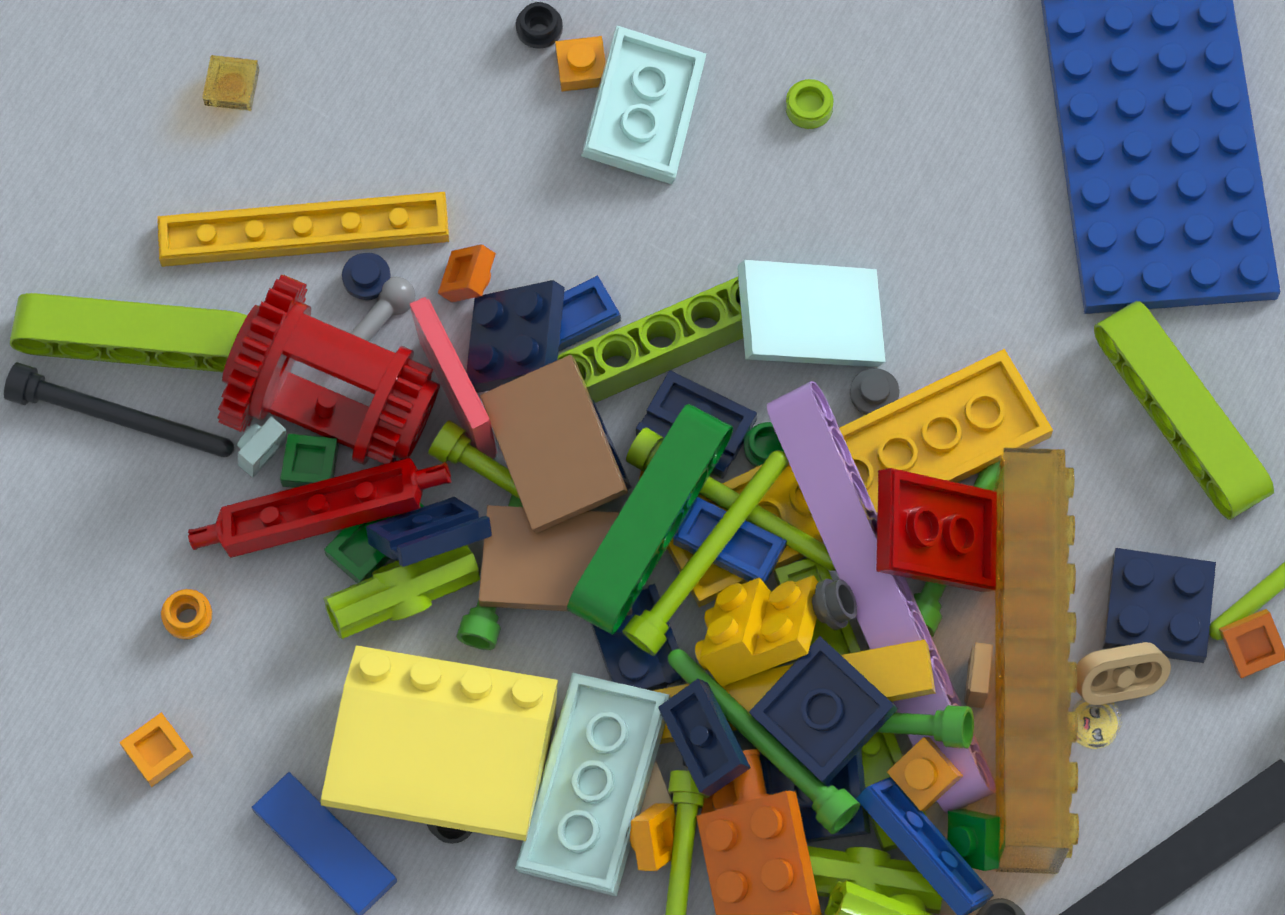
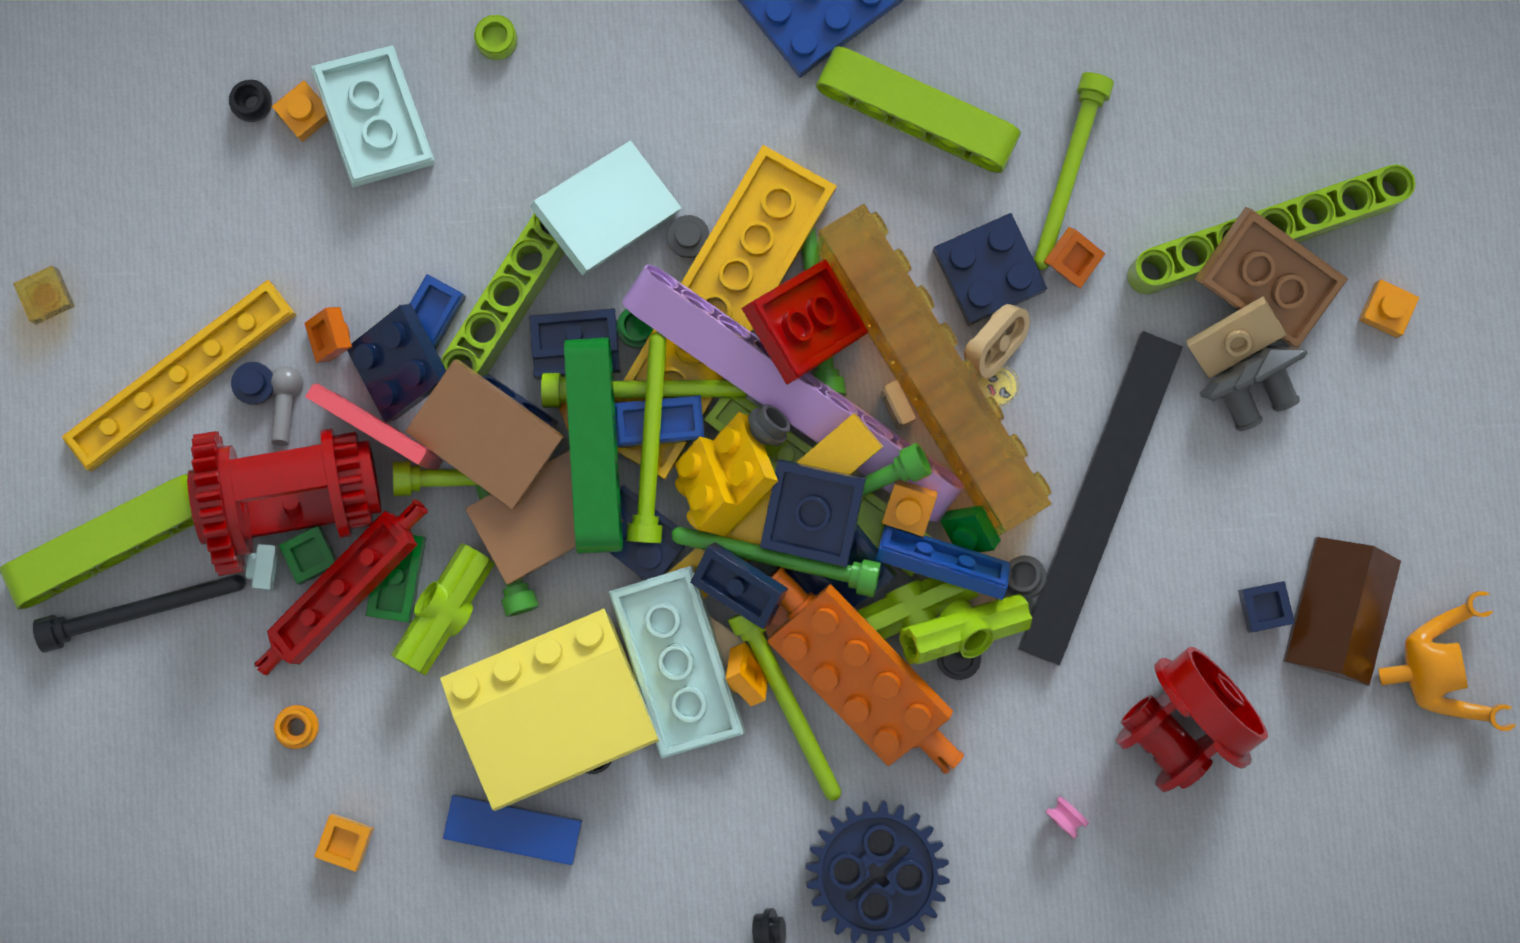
camera: 35 degrees left, 15 degrees up
(428, 531) = (436, 558): dark blue plate -> none

